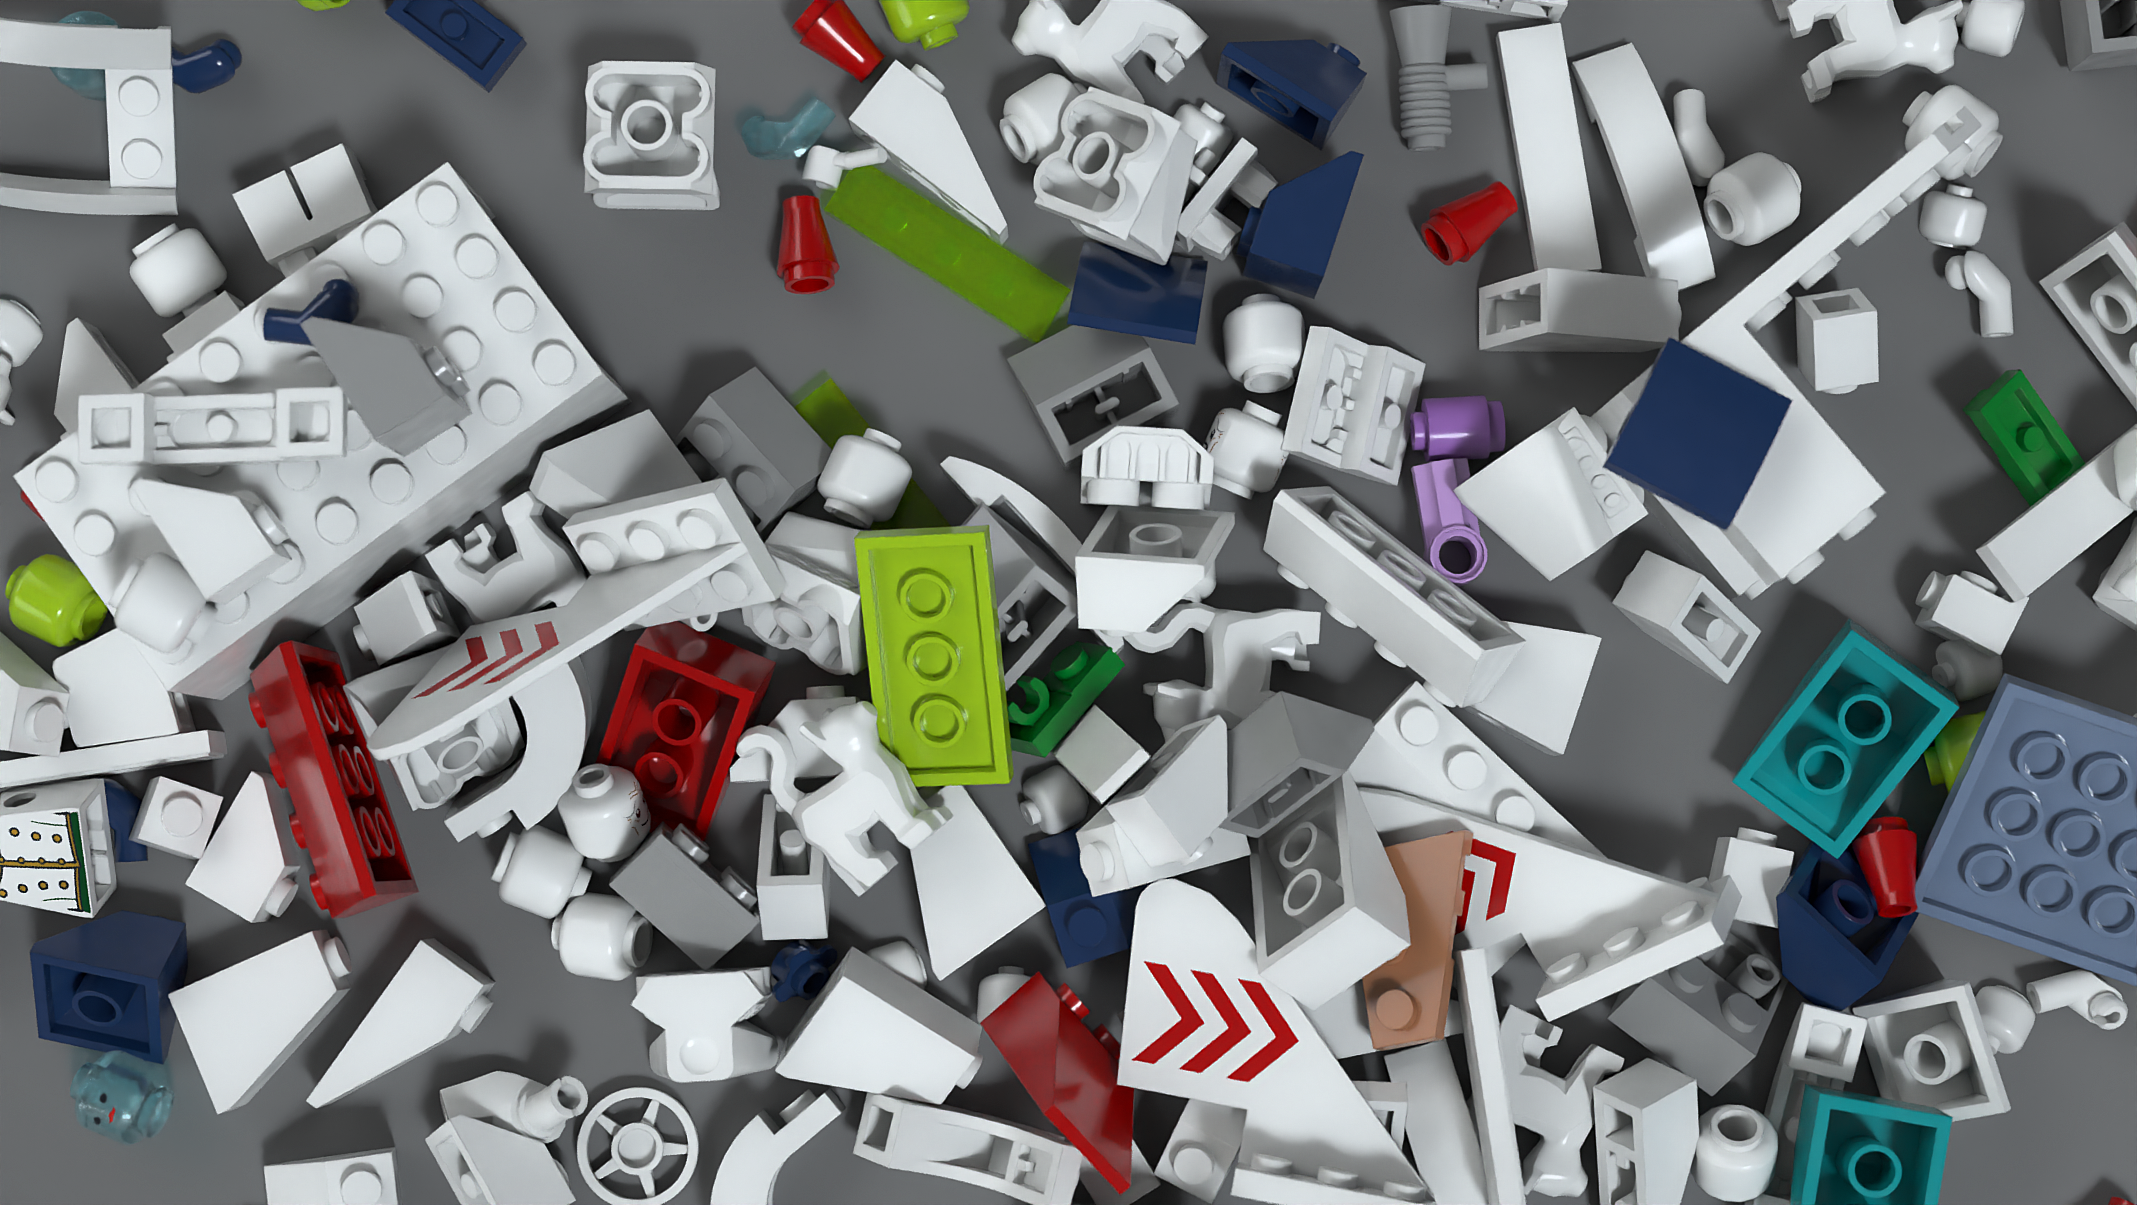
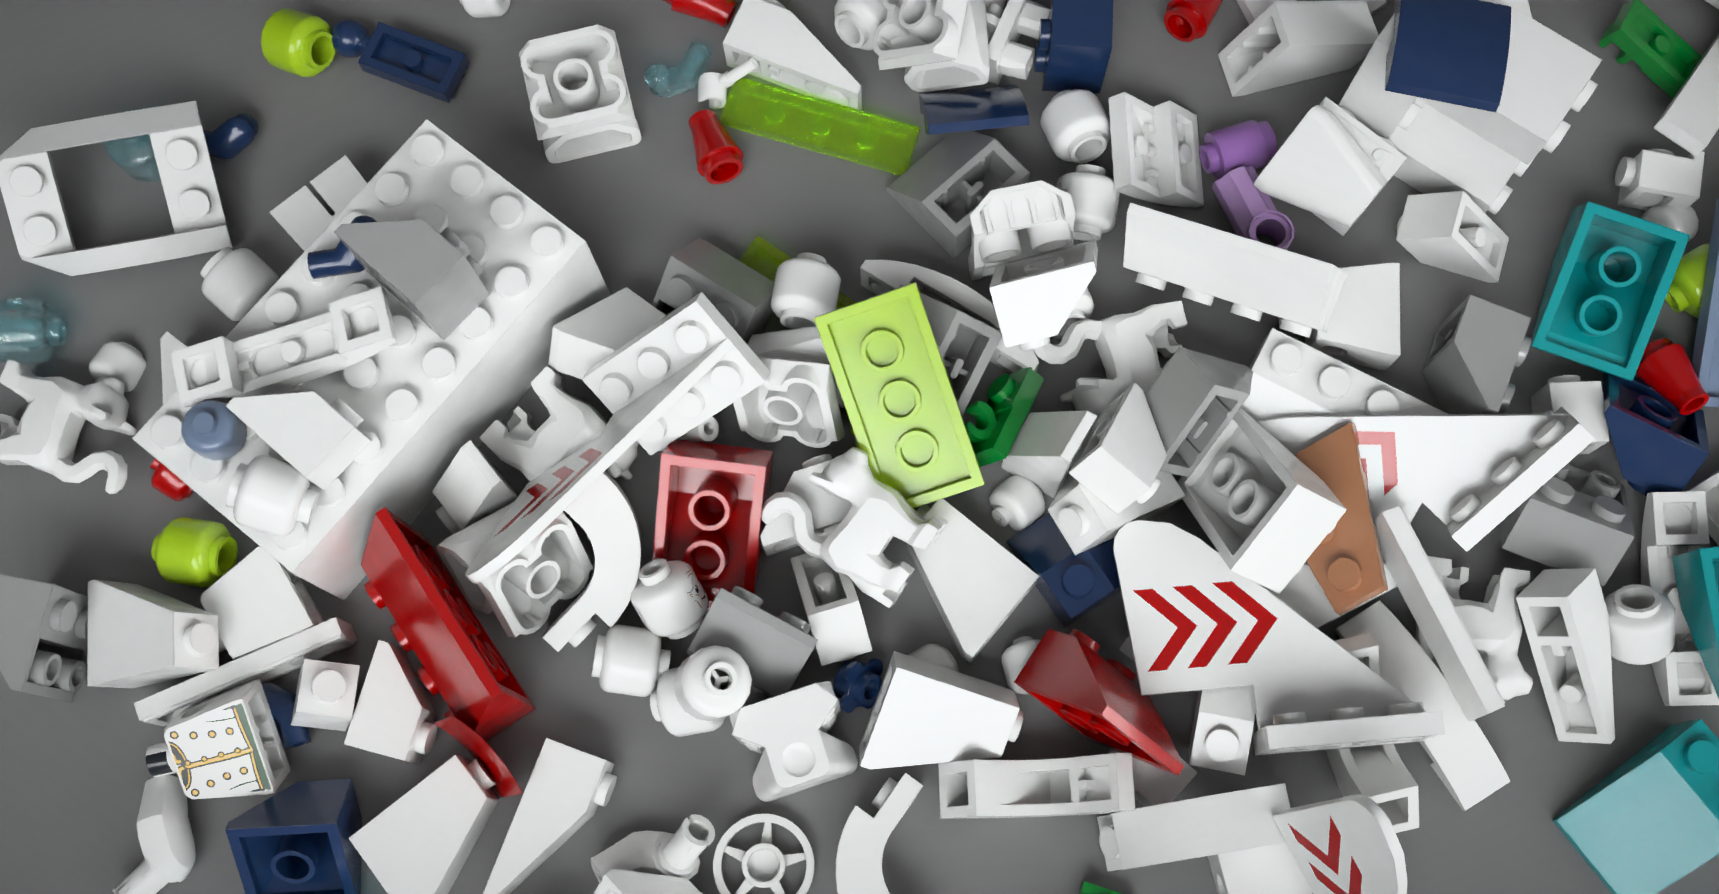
camera: 15 degrees left, 10 degrees down
(107, 501) = (213, 430): none -> sand blue piece
(359, 973) = (478, 748): none -> red sticker
(637, 956) = (700, 696): none -> white head
(1648, 786) = (1476, 357): none -> light grey slope

